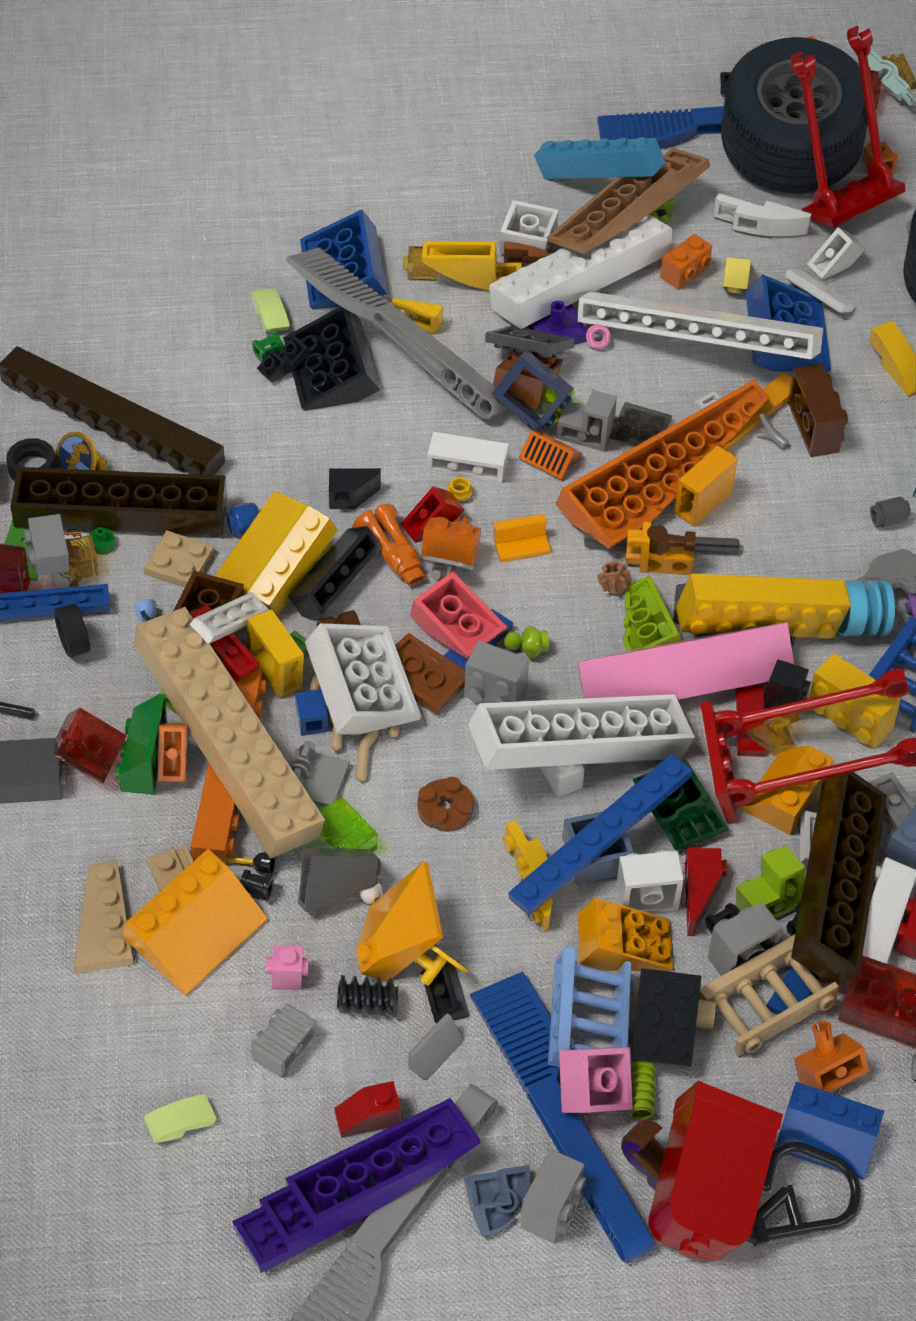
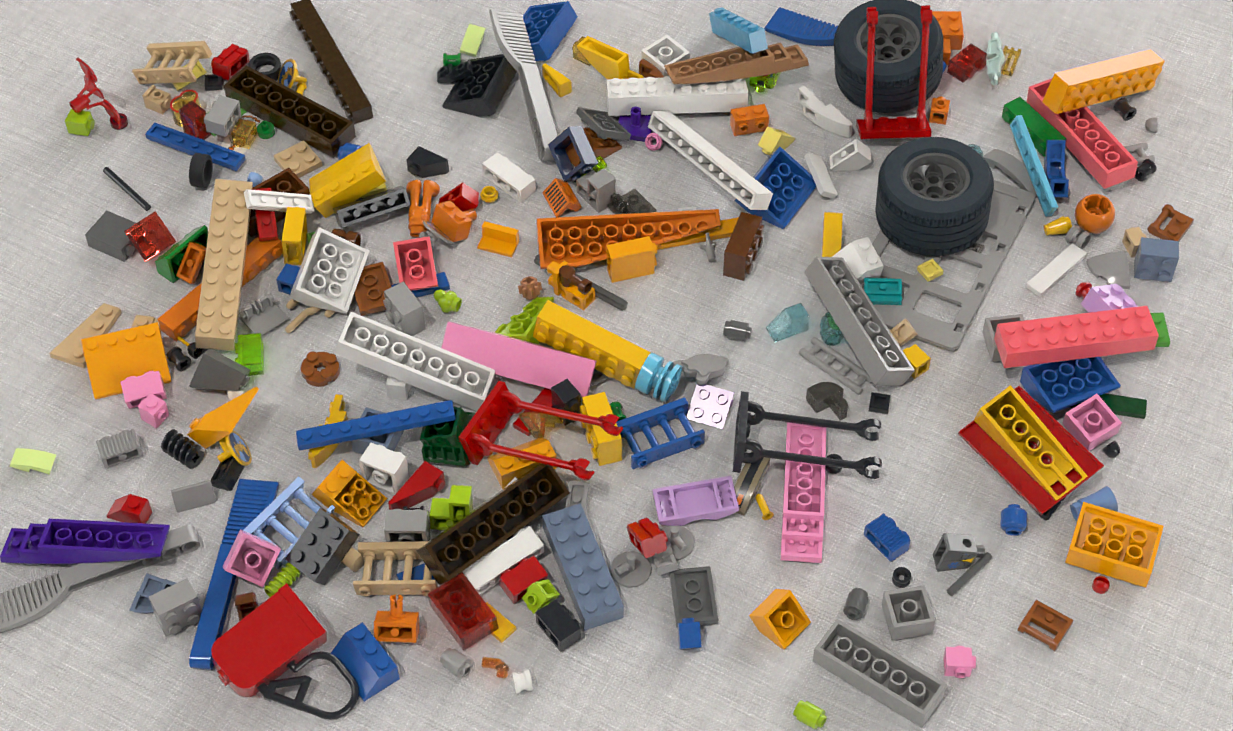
camera: 35 degrees right, 0 degrees up
(250, 946) = (139, 387): none -> bright pink brick

